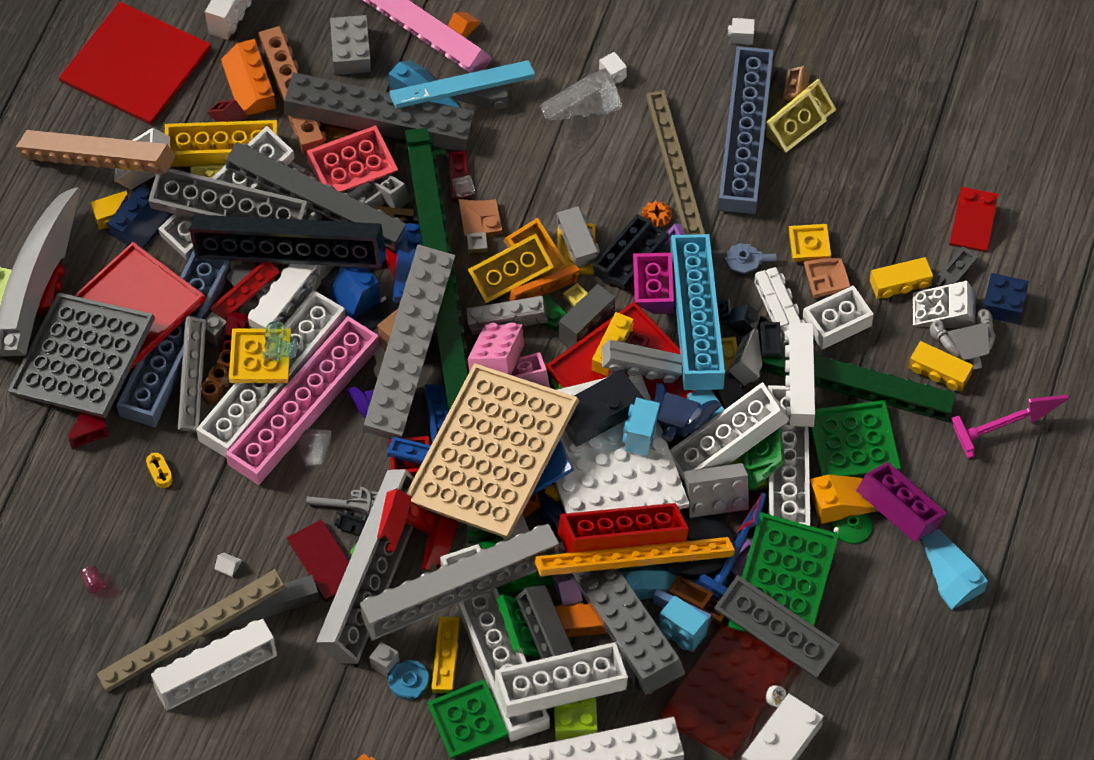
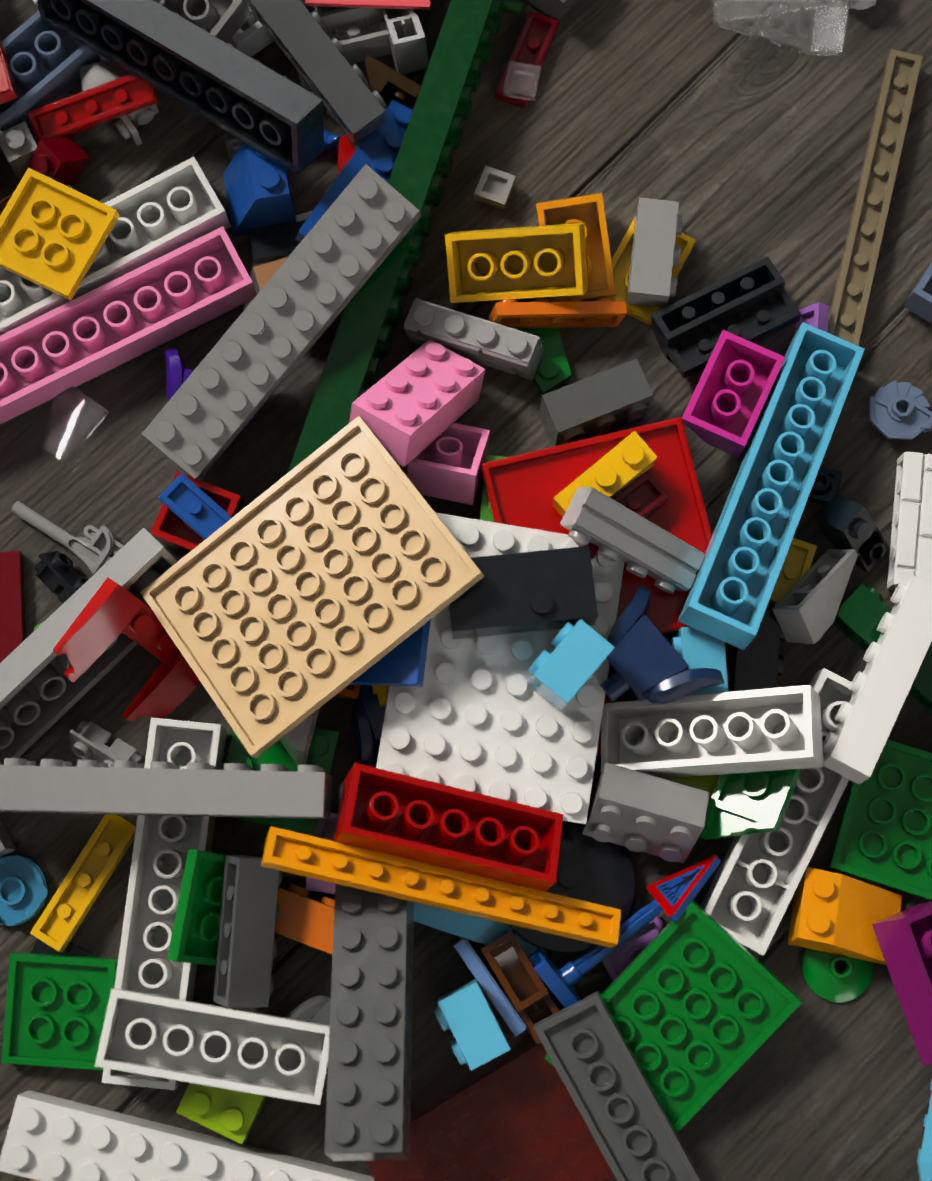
camera: 25 degrees right, 20 degrees up
(280, 345) = (81, 235): clear light blue piece -> none
(287, 294) = (143, 149): white brick -> none
(436, 407) = (280, 448): blue plate -> none
(480, 217) = (522, 145): nougat plate -> none
(574, 294) = (603, 350): light yellow tile -> none
(665, 213) = (810, 279): orange gear -> none
(771, 340) = (869, 585): black tile -> none

